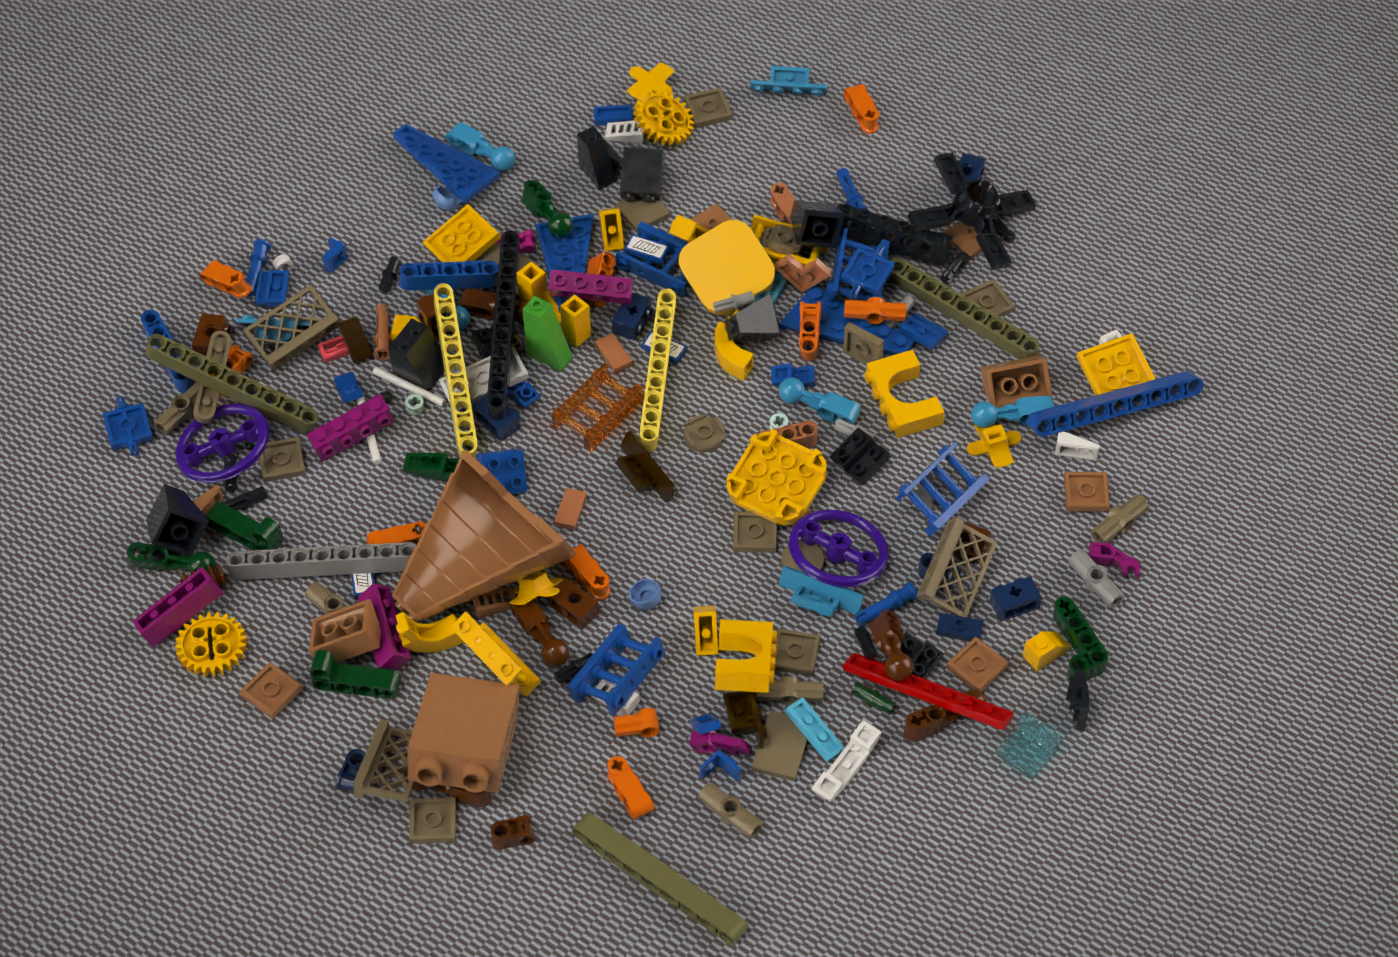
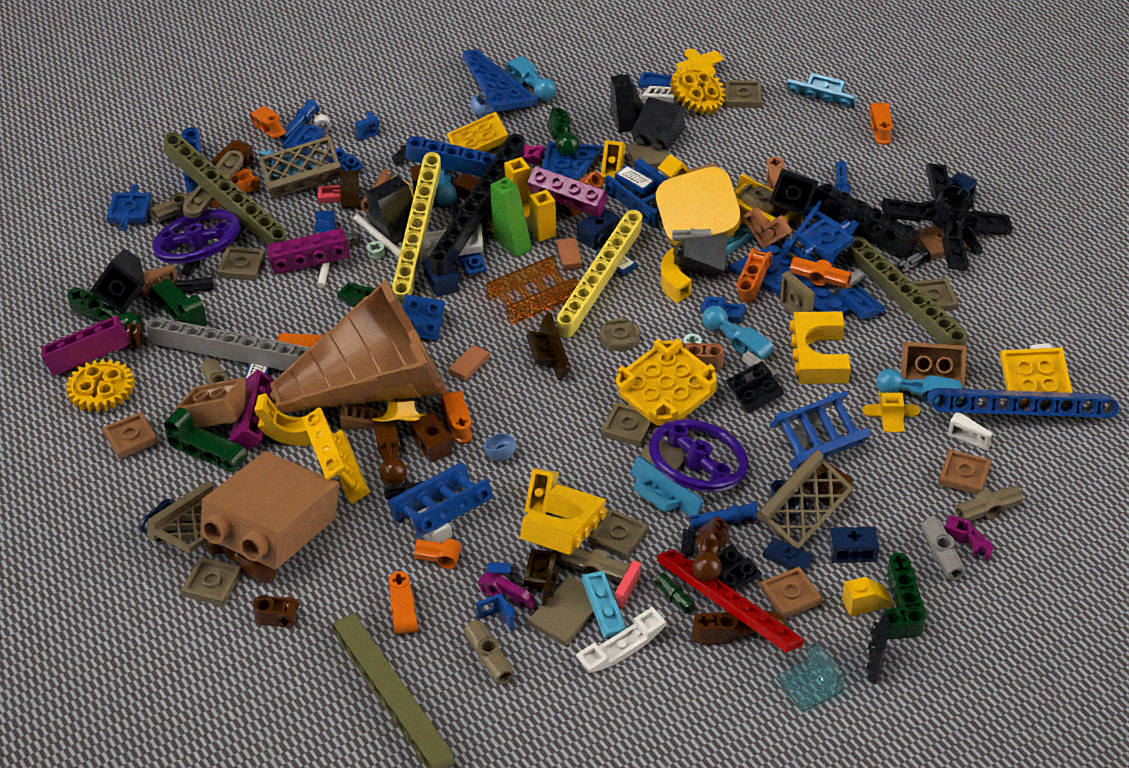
camera: 20 degrees right, 10 degrees down
(336, 305) = (346, 161): none -> blue slope
(828, 701) = (627, 584): none -> coral tile

